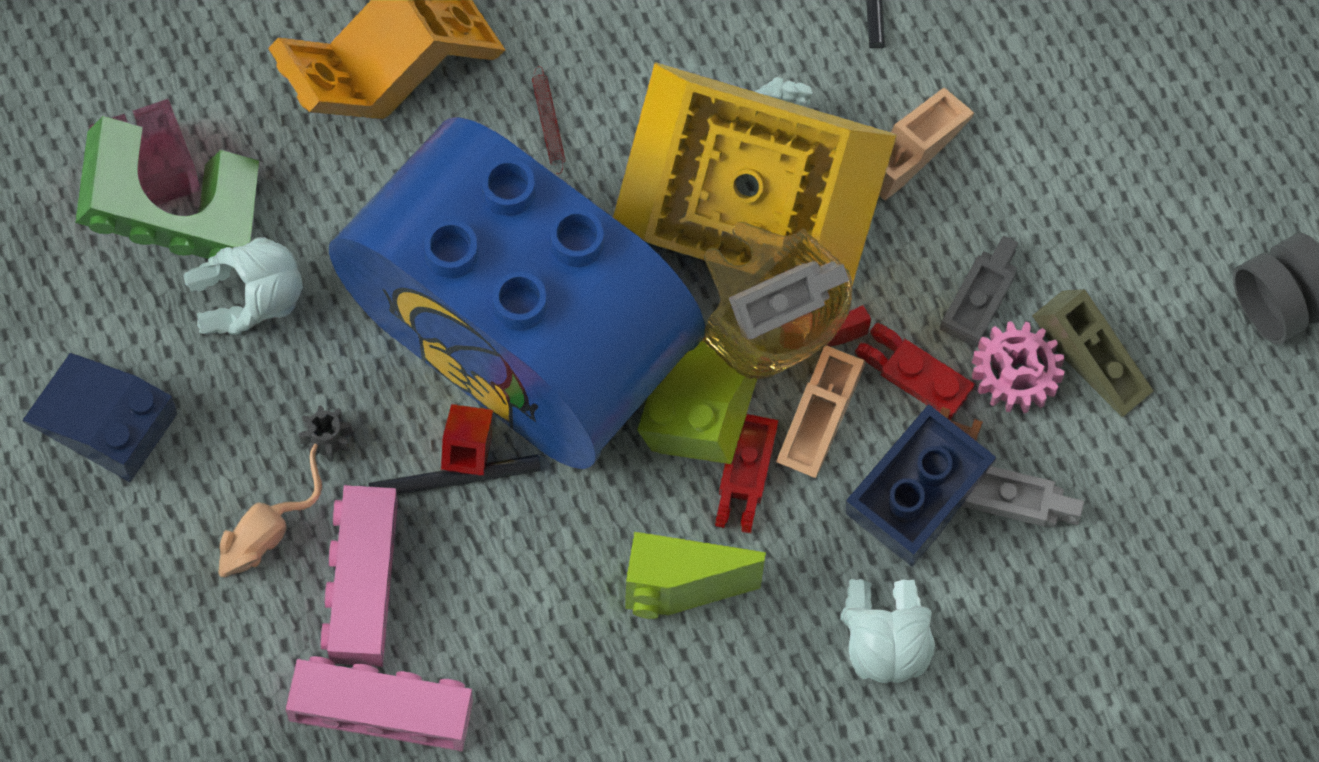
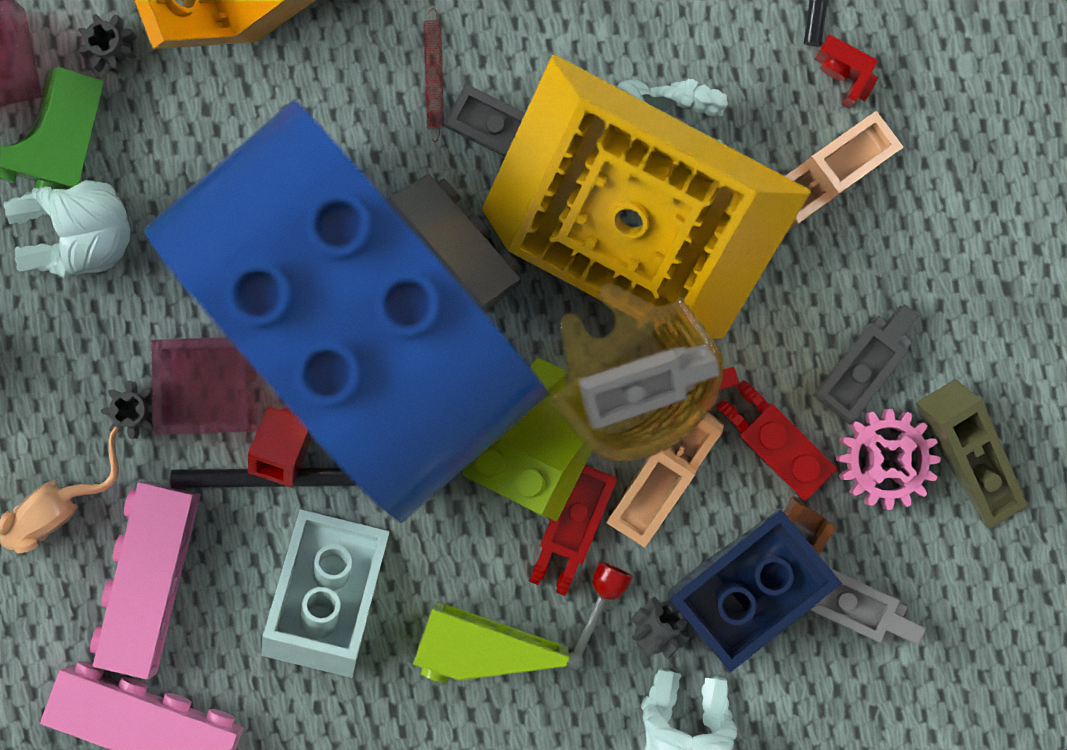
camera: 10 degrees right, 20 degrees up
(263, 128) = (119, 45): none -> dark grey gear
(388, 397) = (201, 387): none -> clear pink piece
(530, 565) = (324, 593): none -> light aqua slope
(600, 146) = (484, 120): none -> dark grey hinge
(788, 513) = (609, 584): none -> hinge
(843, 540) = (660, 628): none -> dark grey gear
(908, 52) = (843, 61): none -> red bracket

